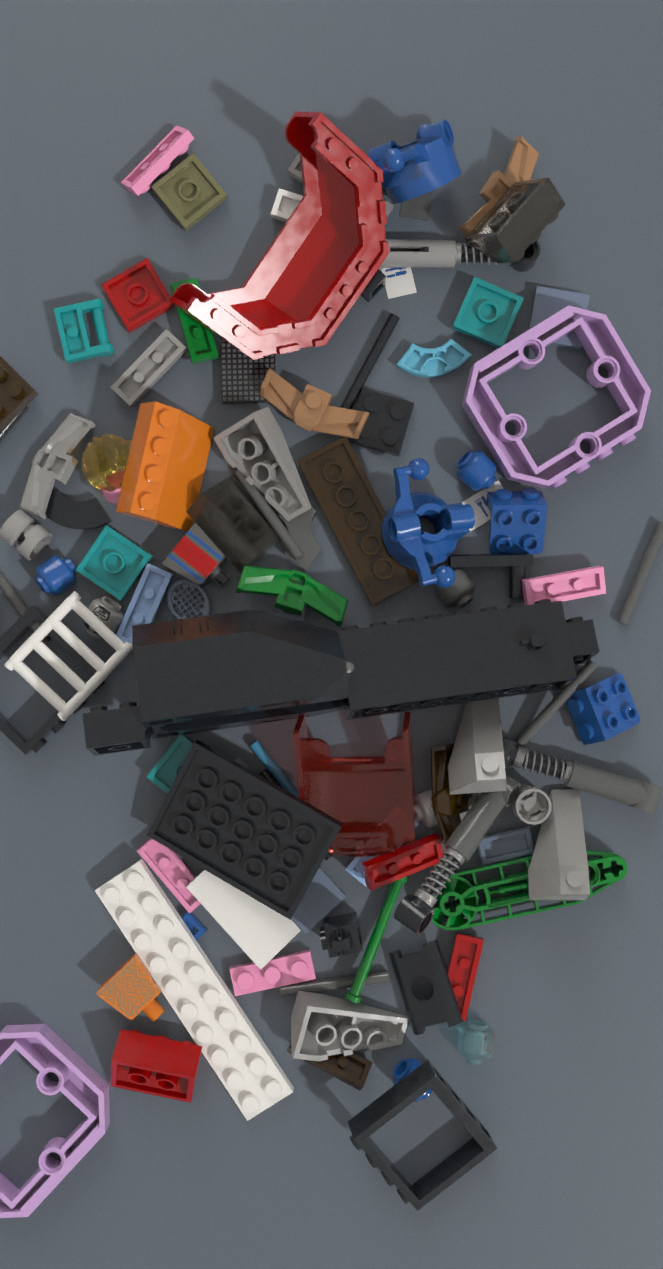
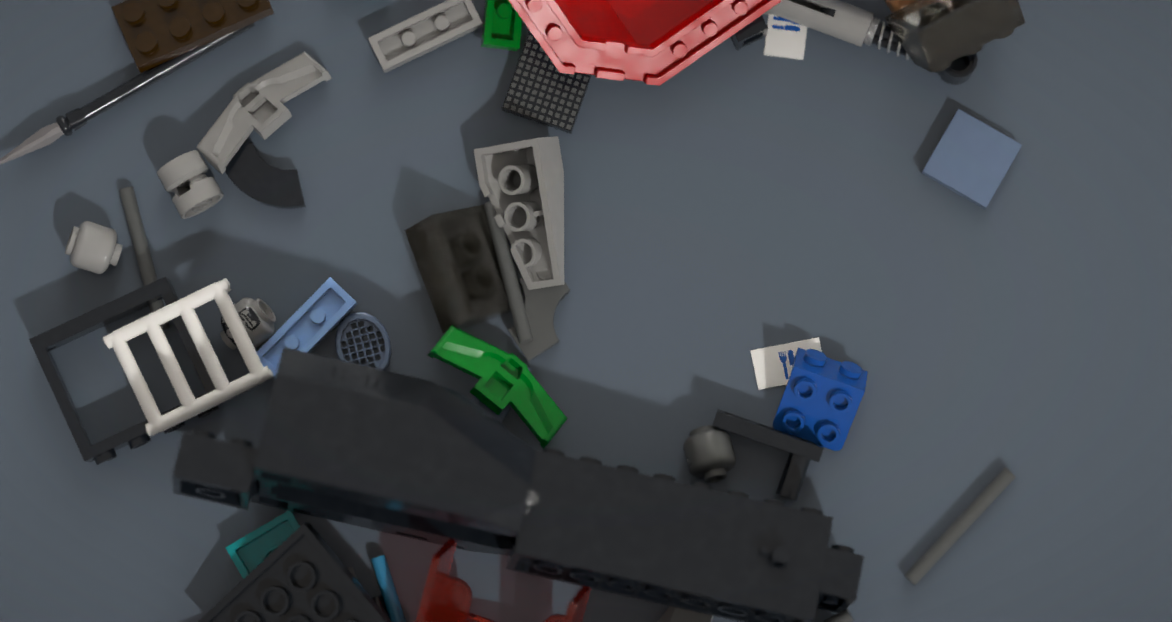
camera: 25 degrees right, 5 degrees down
(55, 575) = (208, 249): blue head -> none
(105, 464) = (335, 144): clear yellow hair -> none
(114, 563) = (288, 261): teal plate -> none
(165, 466) = (399, 164): orange slope -> none
(198, 559) = (396, 296): torso -> none
(312, 408) = (612, 158): medium nougat plate -> none
(355, 518) = (618, 323): dark brown plate -> none
(370, 361) = (709, 127): black bar -> none
(386, 422) = (694, 208): black plate -> none
(403, 530) = (685, 390): blue piece -> none
(433, 361) = (791, 155): medium azure tile -> none
(476, 470) = (793, 314): blue head -> none
(487, 313) = (882, 120): teal plate -> none
(565, 585) = (853, 503): bright pink plate -> none
(604, 350) = (1012, 222): lavender panel -> none

